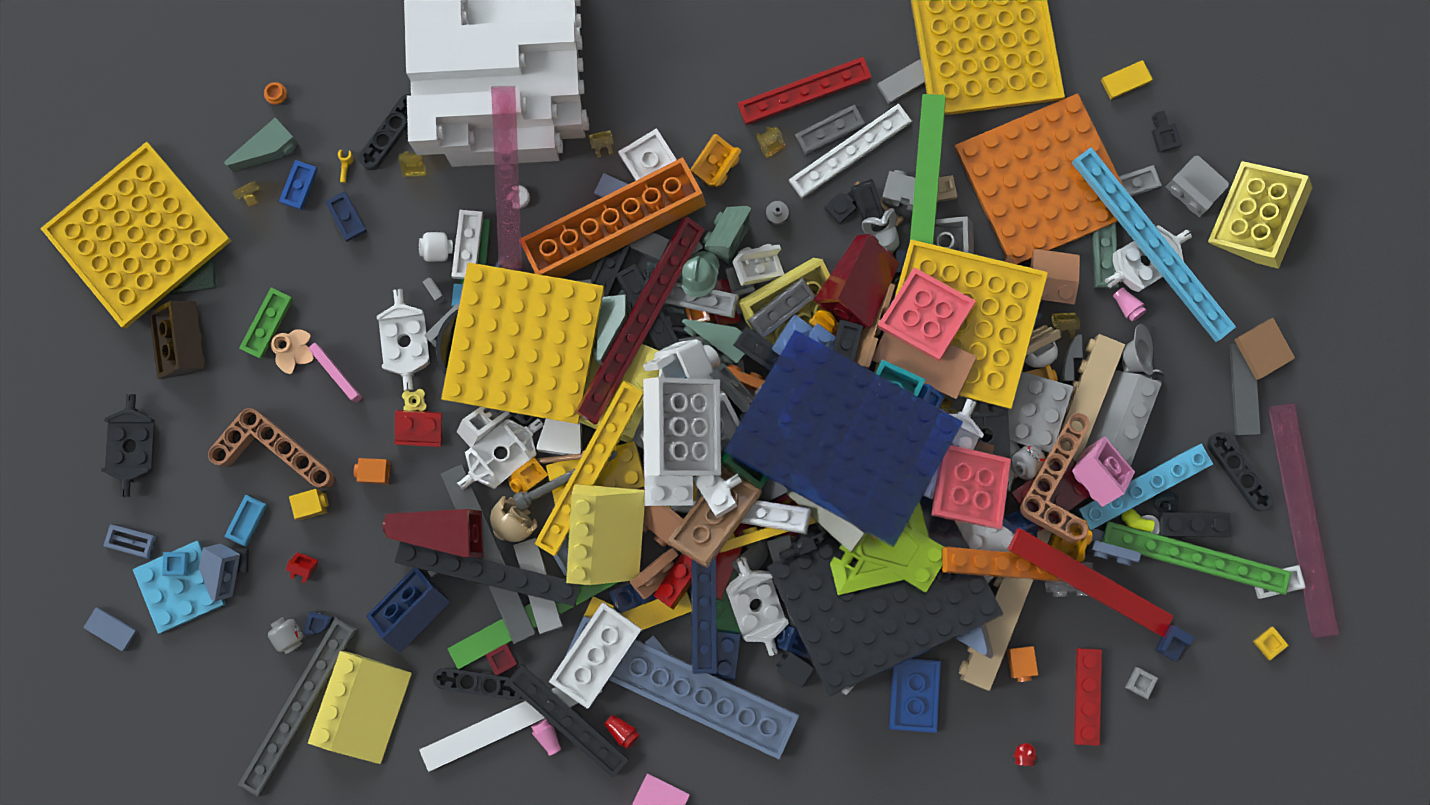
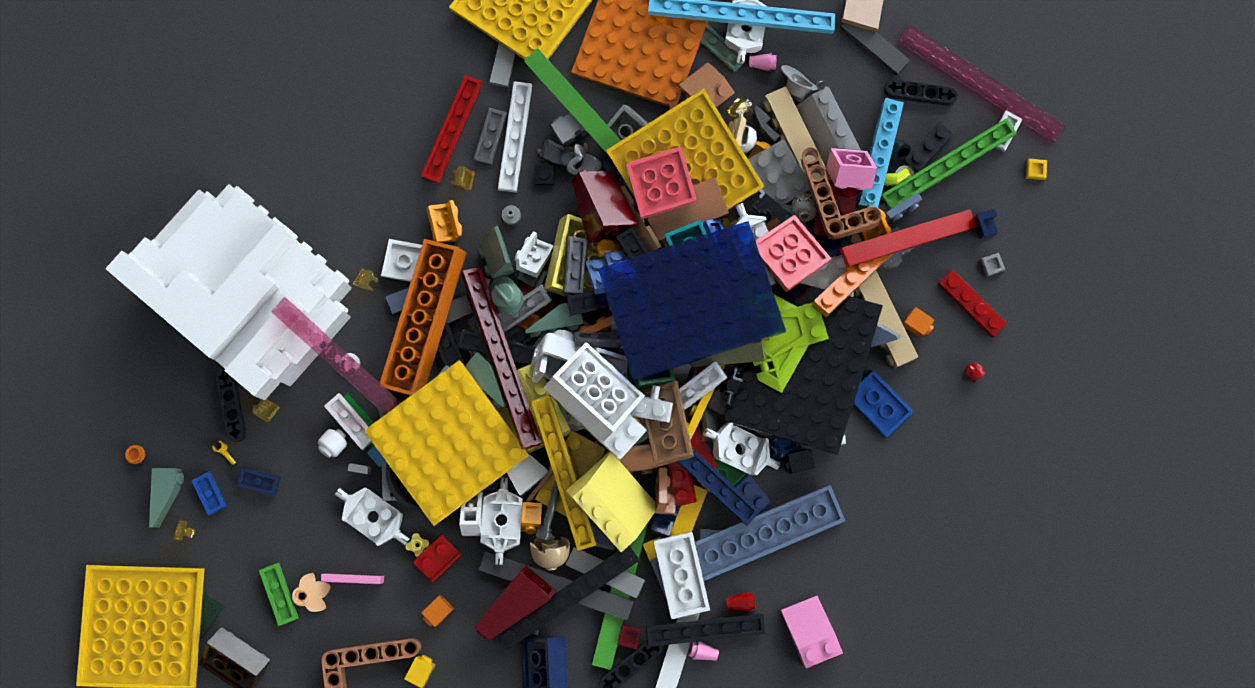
camera: 50 degrees left, 0 degrees up
(946, 189) = (594, 101): tan tile -> none

